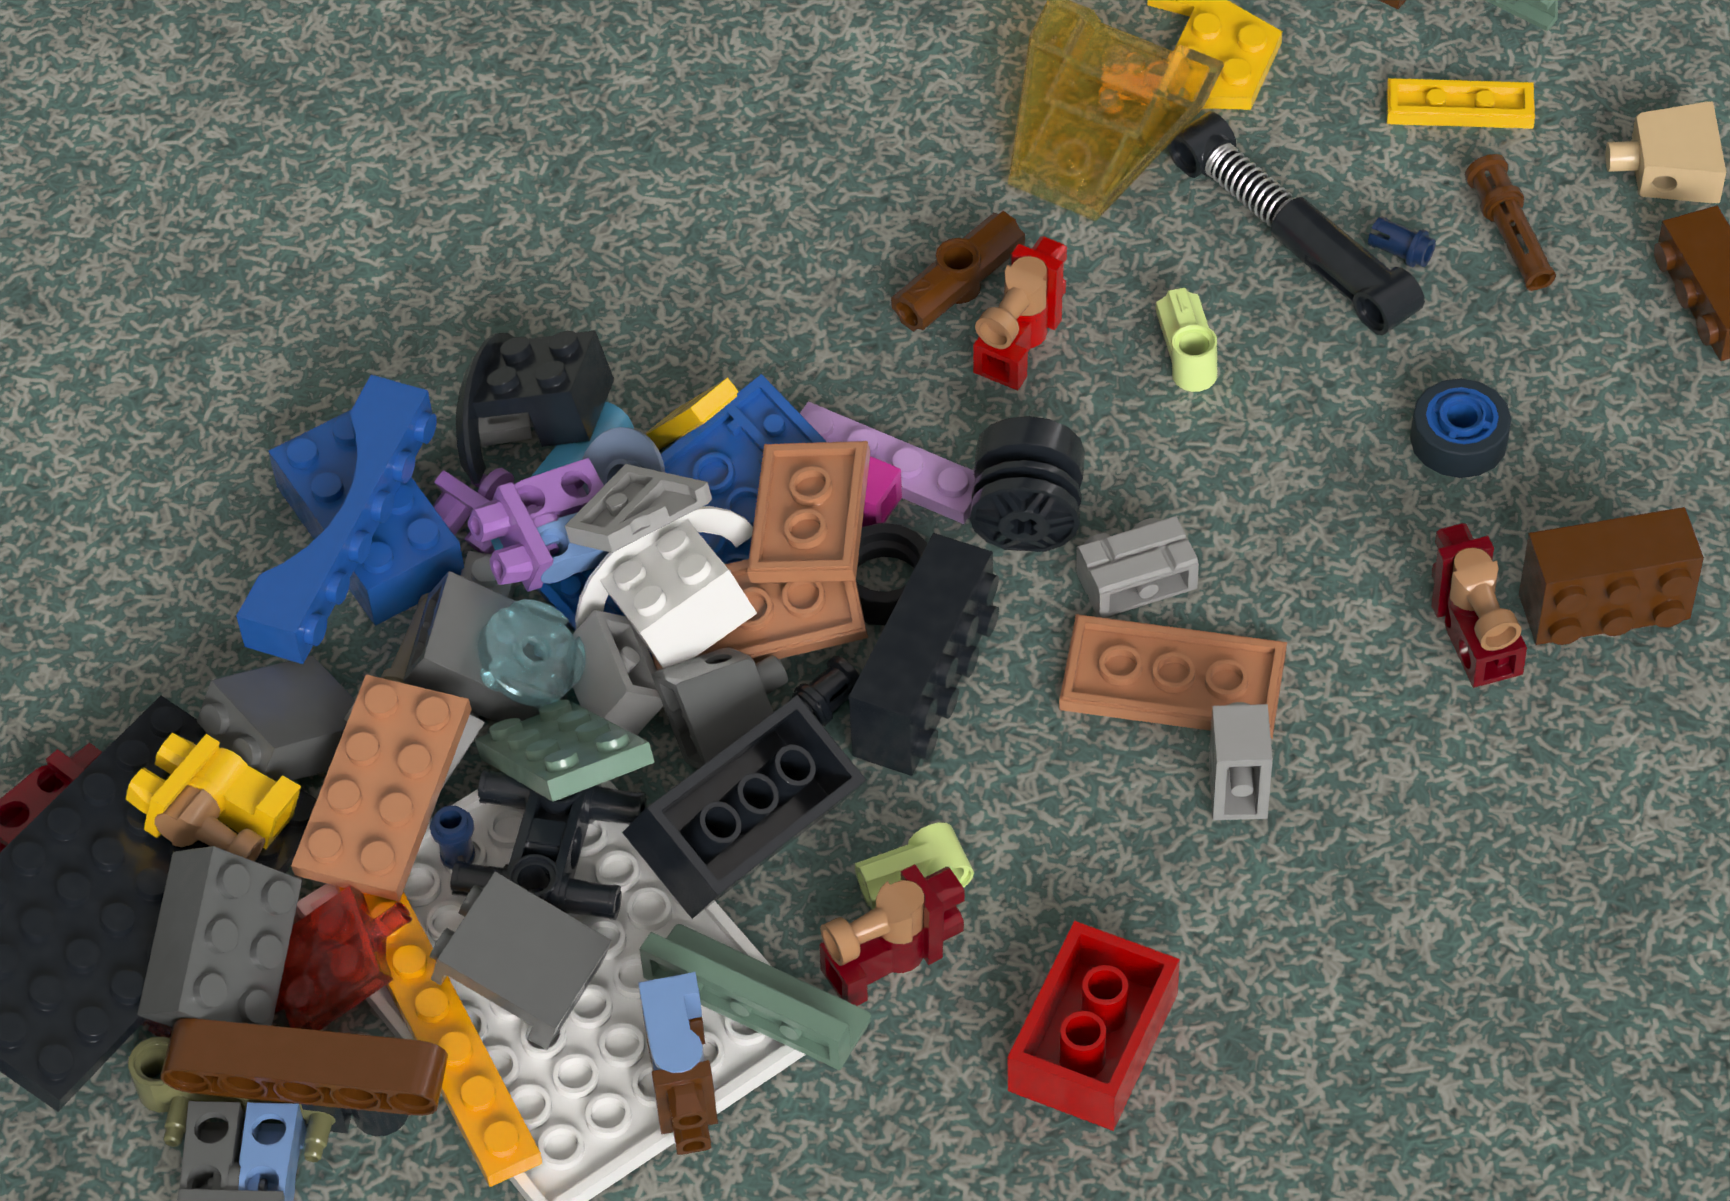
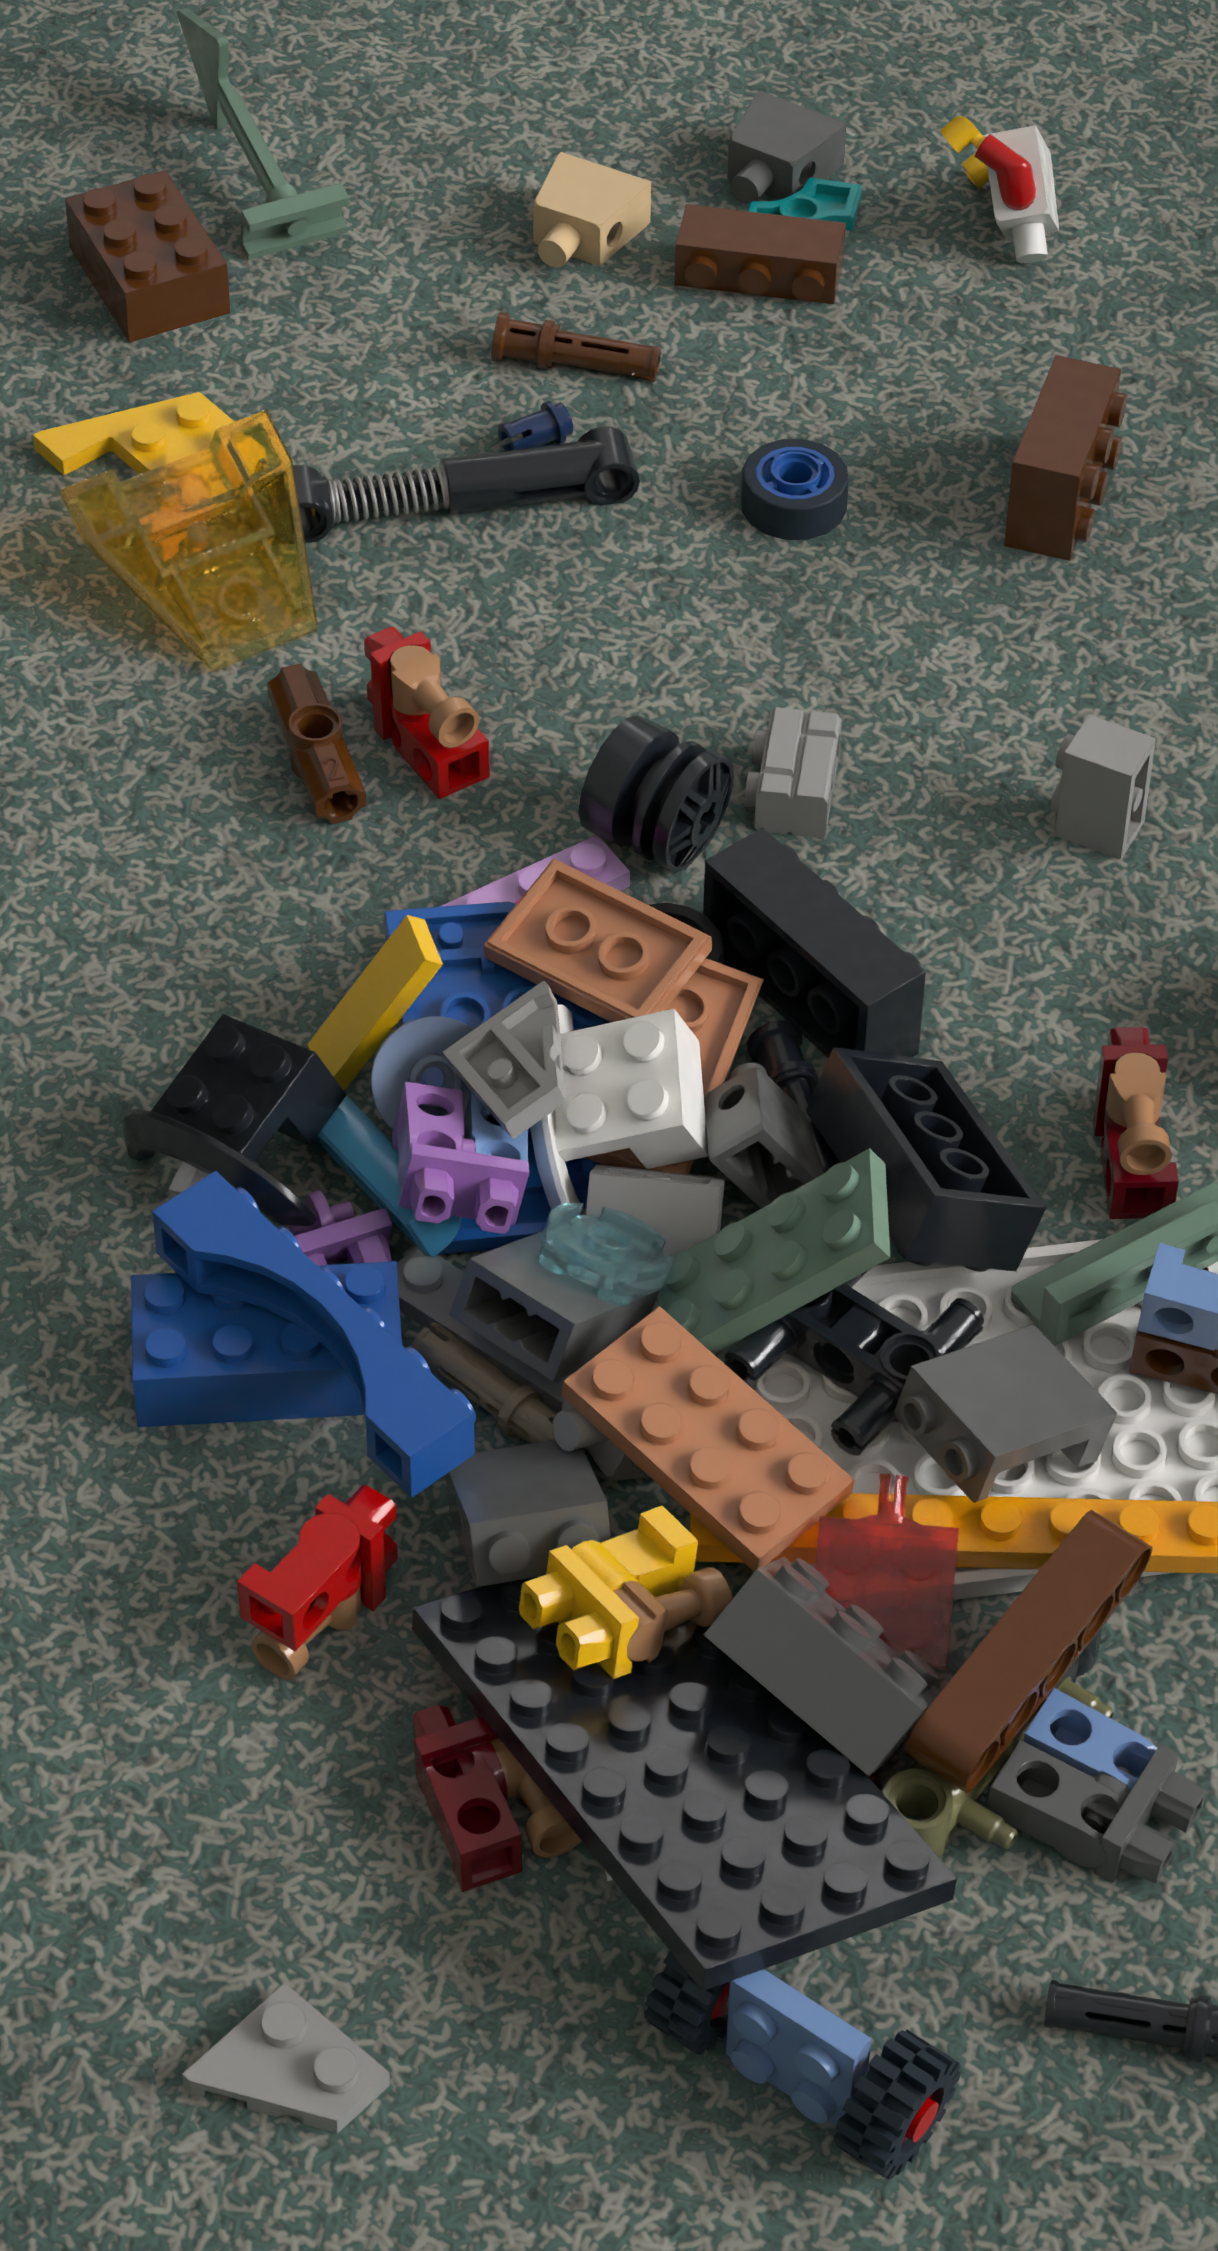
camera: 65 degrees left, 5 degrees down
(165, 633) = (320, 1580): none -> red hips
(453, 831) = (800, 1403): dark blue pin -> none
(928, 849) = (1050, 1080): yellowish green piece -> none
(1167, 672) = (936, 812): nougat tile -> none
(1188, 340) = (559, 619): yellowish green piece -> none
(1460, 103) = (390, 322): yellow tile -> none
(1464, 592) = (1021, 560): hips -> none

